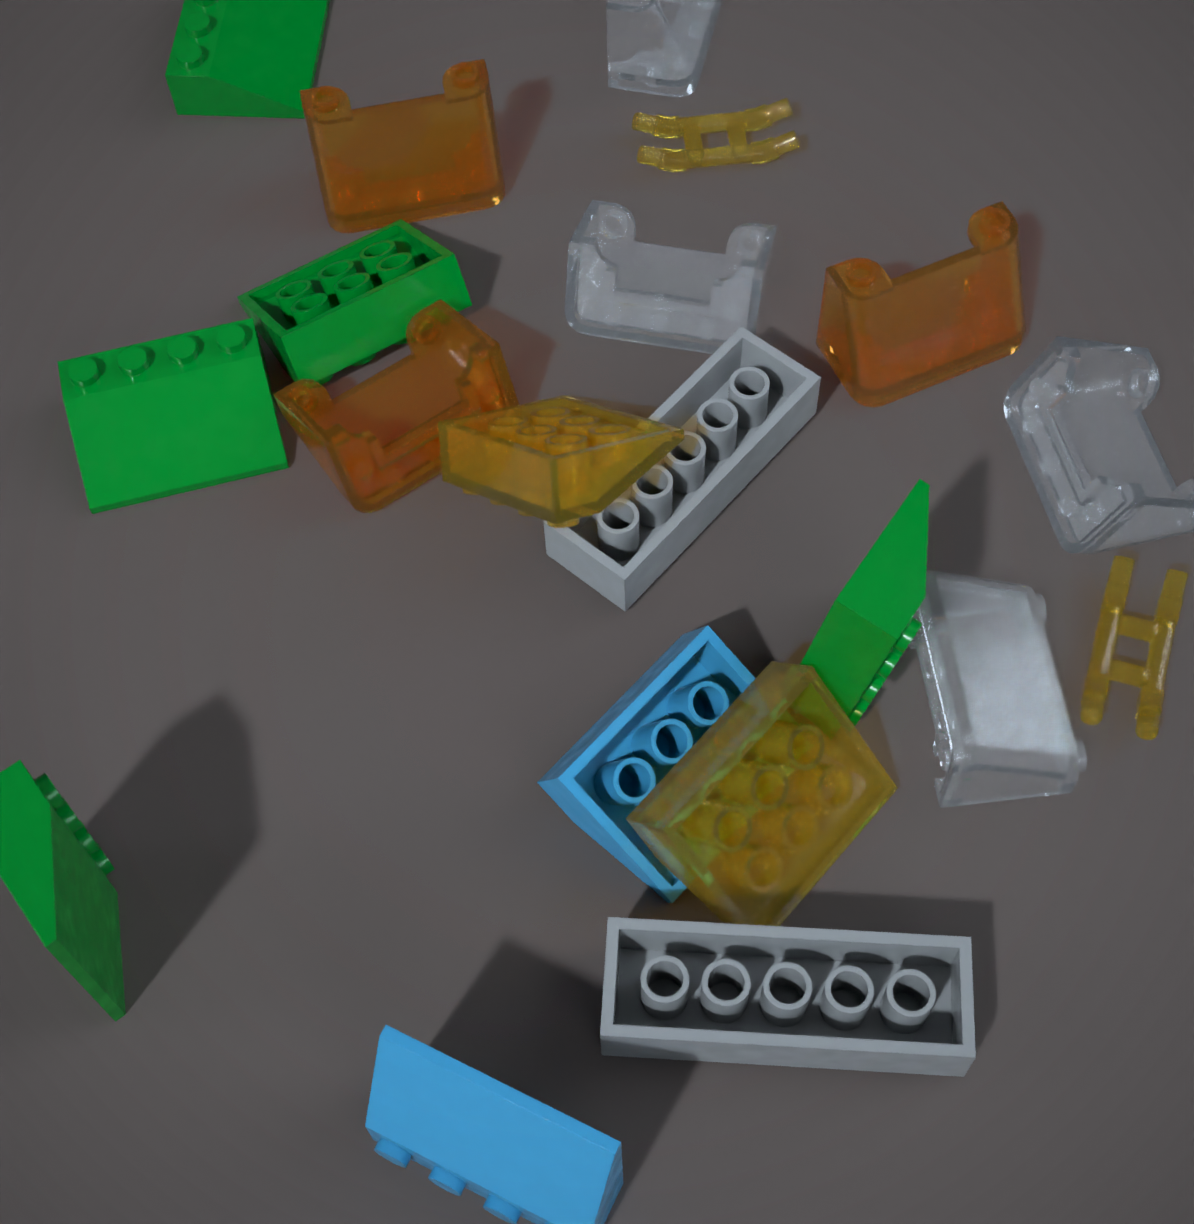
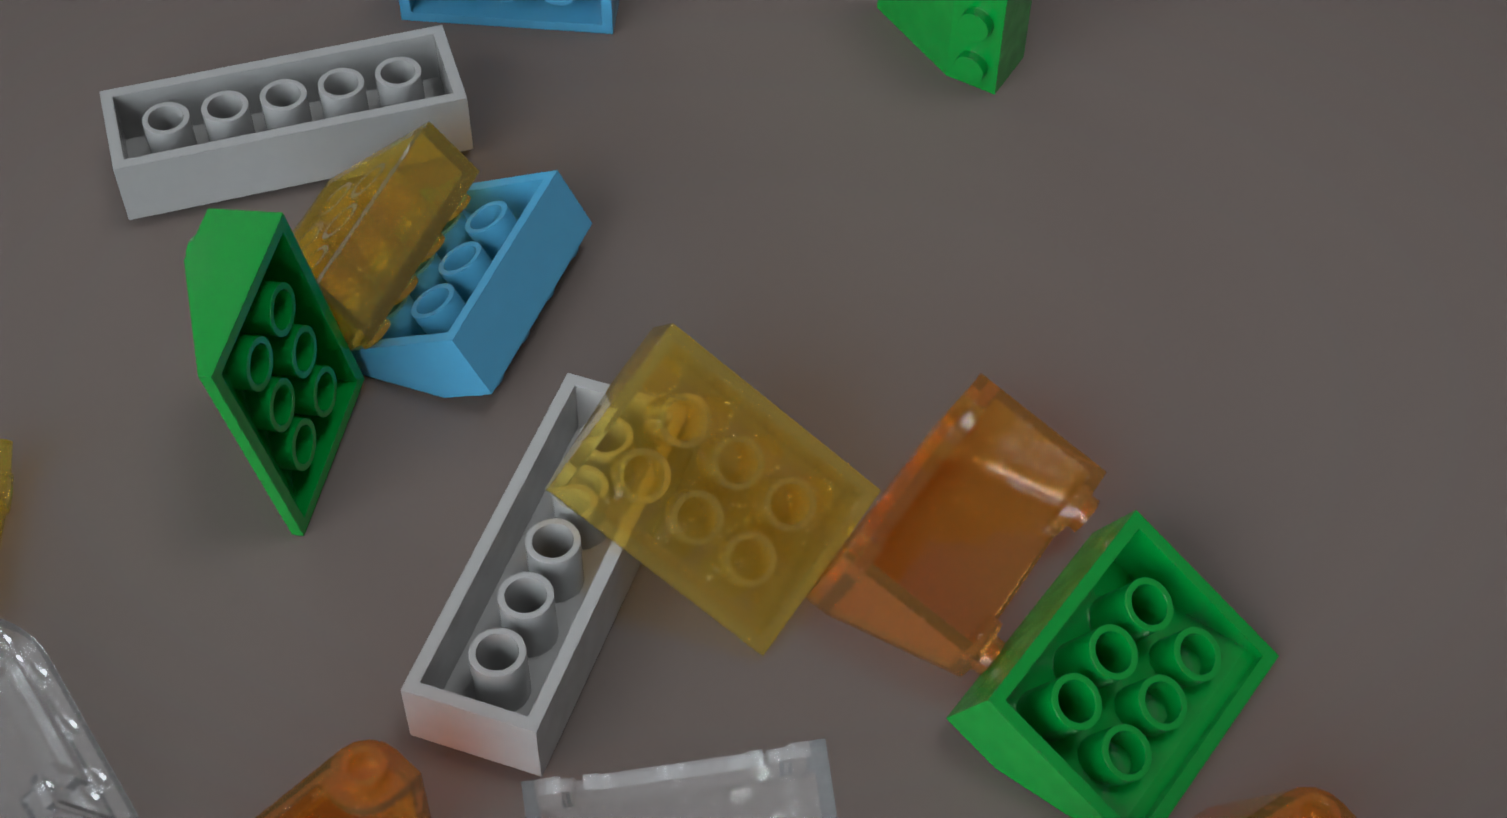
camera: 155 degrees right, 10 degrees down
(172, 415) = (1238, 461): green slope -> none
(993, 692) = (128, 435): clear windscreen -> none

